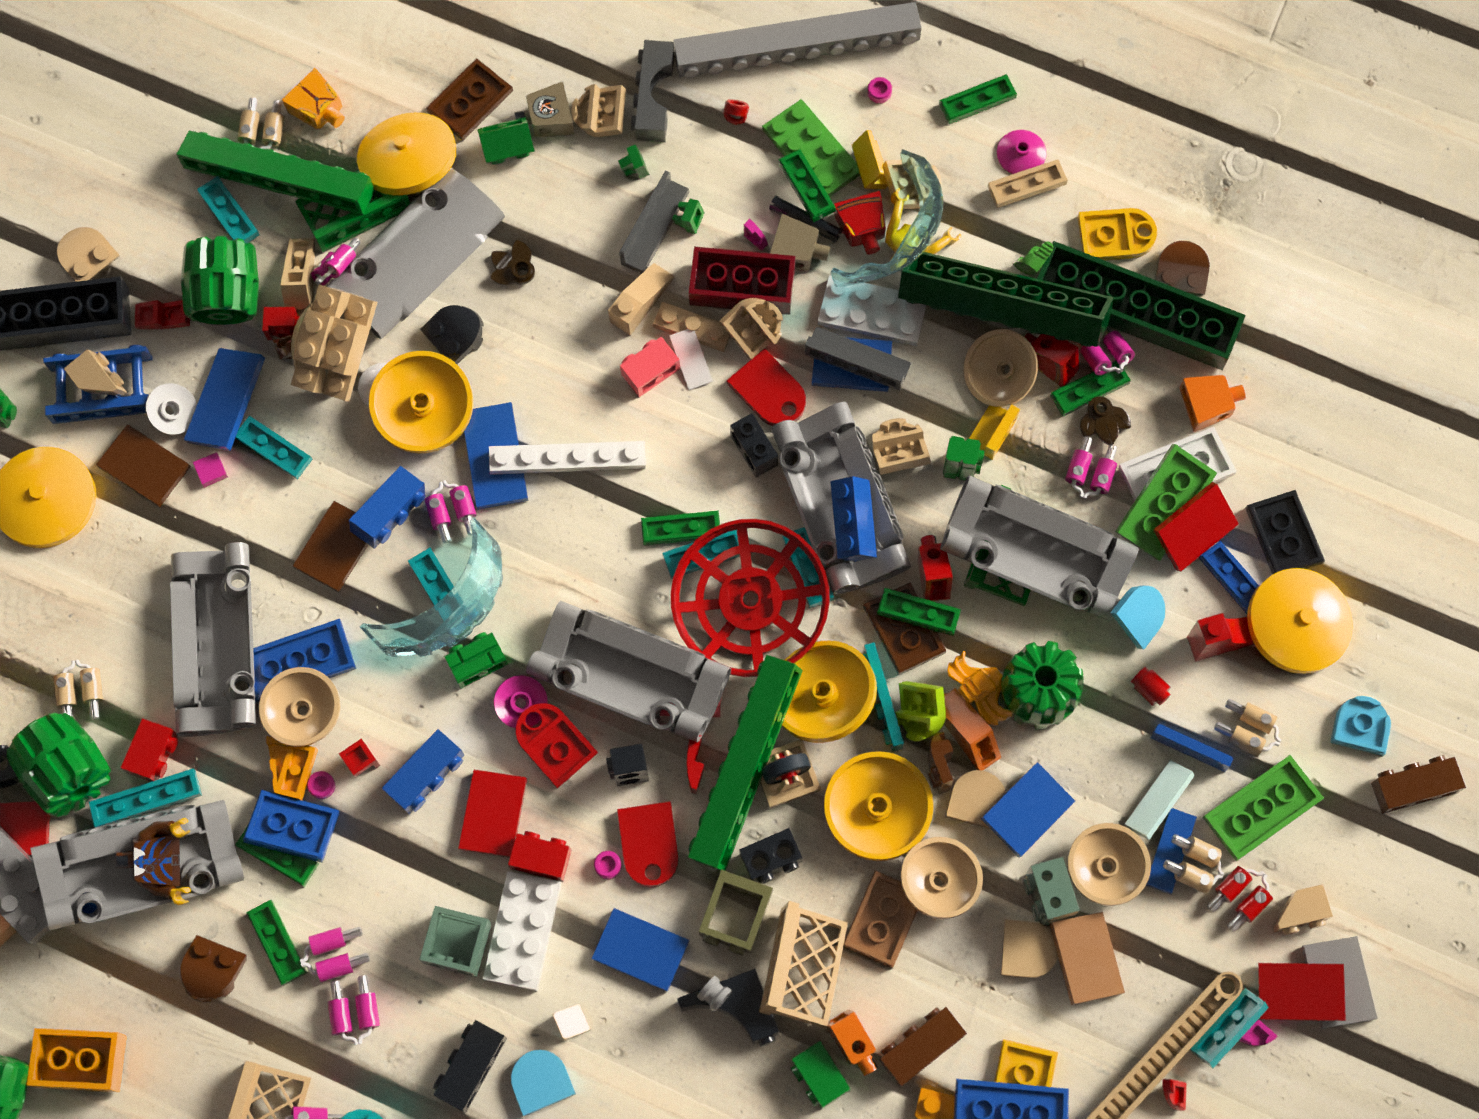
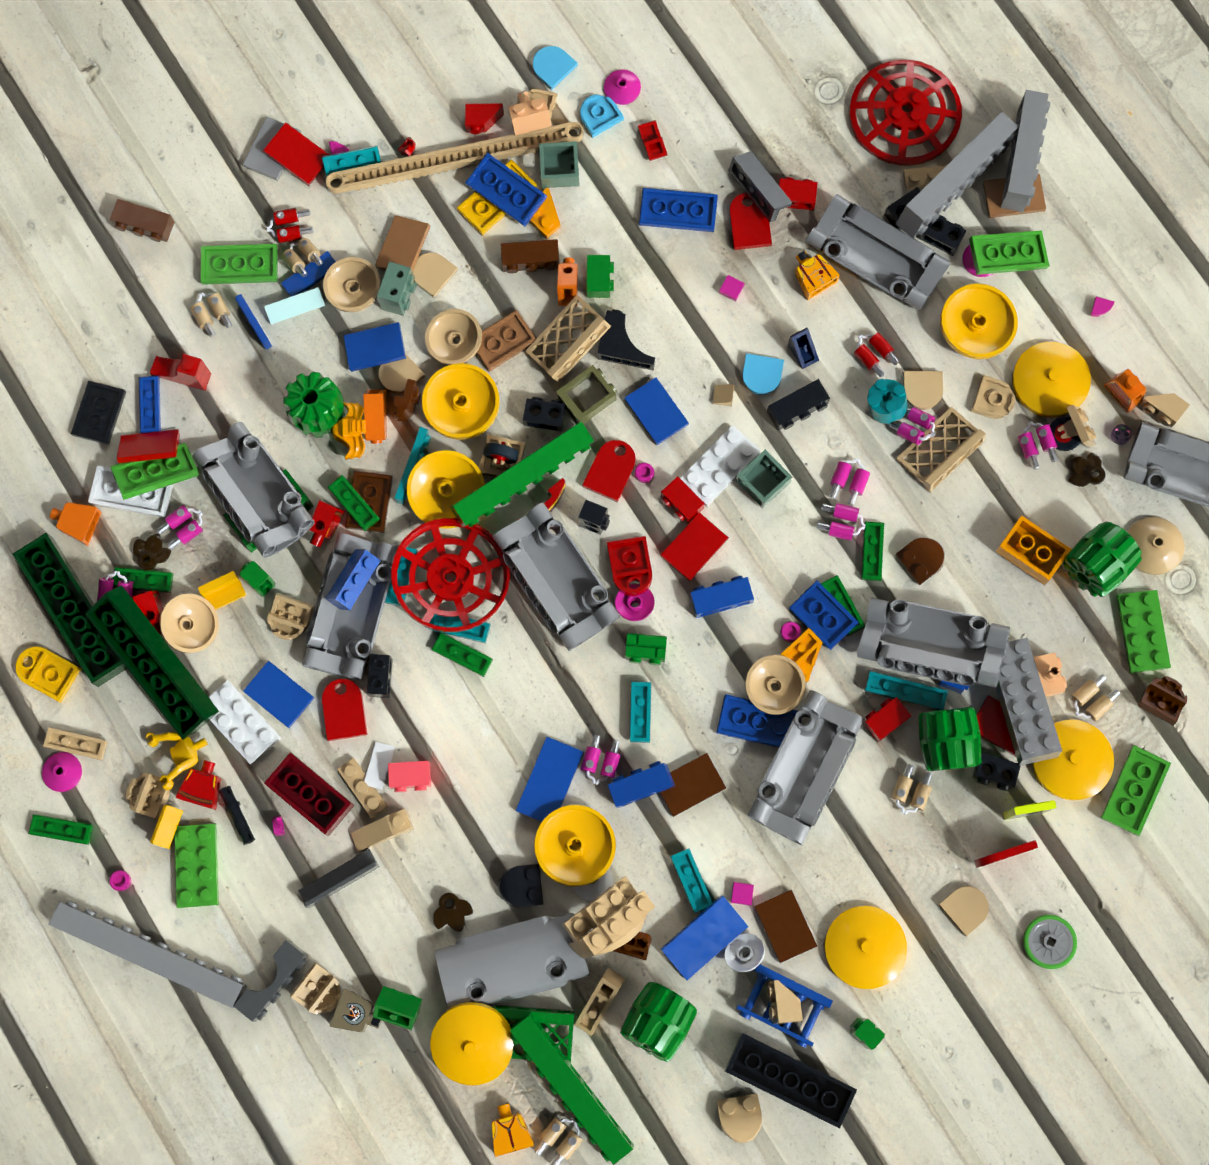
camera: 145 degrees left, 5 degrees up
(157, 859) = (919, 633): torso -> none
(159, 315) = (712, 1033): red slope -> none
(227, 210) = (622, 1084): teal plate -> none
(279, 321) = (633, 969): red brick -> none
(335, 263) = (572, 988): dark pink piece -> none
(358, 758) = (757, 629): red panel -> none
(456, 613) = (635, 680): clear light blue windscreen -> none
(470, 99) = (401, 1064): reddish brown tile -> none
(567, 457) = (504, 747): white plate -> none
(633, 163) = (320, 933): green tile -> none
(691, 217) = (310, 866): green tile -> none
(714, 993) = (630, 349): light grey wheel -> none
(736, 108) = (226, 928): red tile -> none
(753, 325) = (323, 756): tan slope -> none
(799, 240) = (256, 799): dark tan torso -> none
(806, 185) = (219, 835): green tile -> none
(857, 358) = (272, 692): dark grey panel -> none
(920, 232) = (168, 743): clear light blue windscreen -> none
(921, 709) = (395, 439): lime slope -> none
(1035, 259) = (117, 688): bright green helmet -> none
(1140, 614) = (222, 415): medium azure tile -> none
(1151, 686) = (249, 371): red brick -> none
(1184, 267) = (23, 619): reddish brown slope -> none
(1299, 621) = (132, 353): yellow dish -> none
(1303, 908) = (262, 196): tan slope -> none
(1362, 725) = (145, 275): medium azure tile -> none

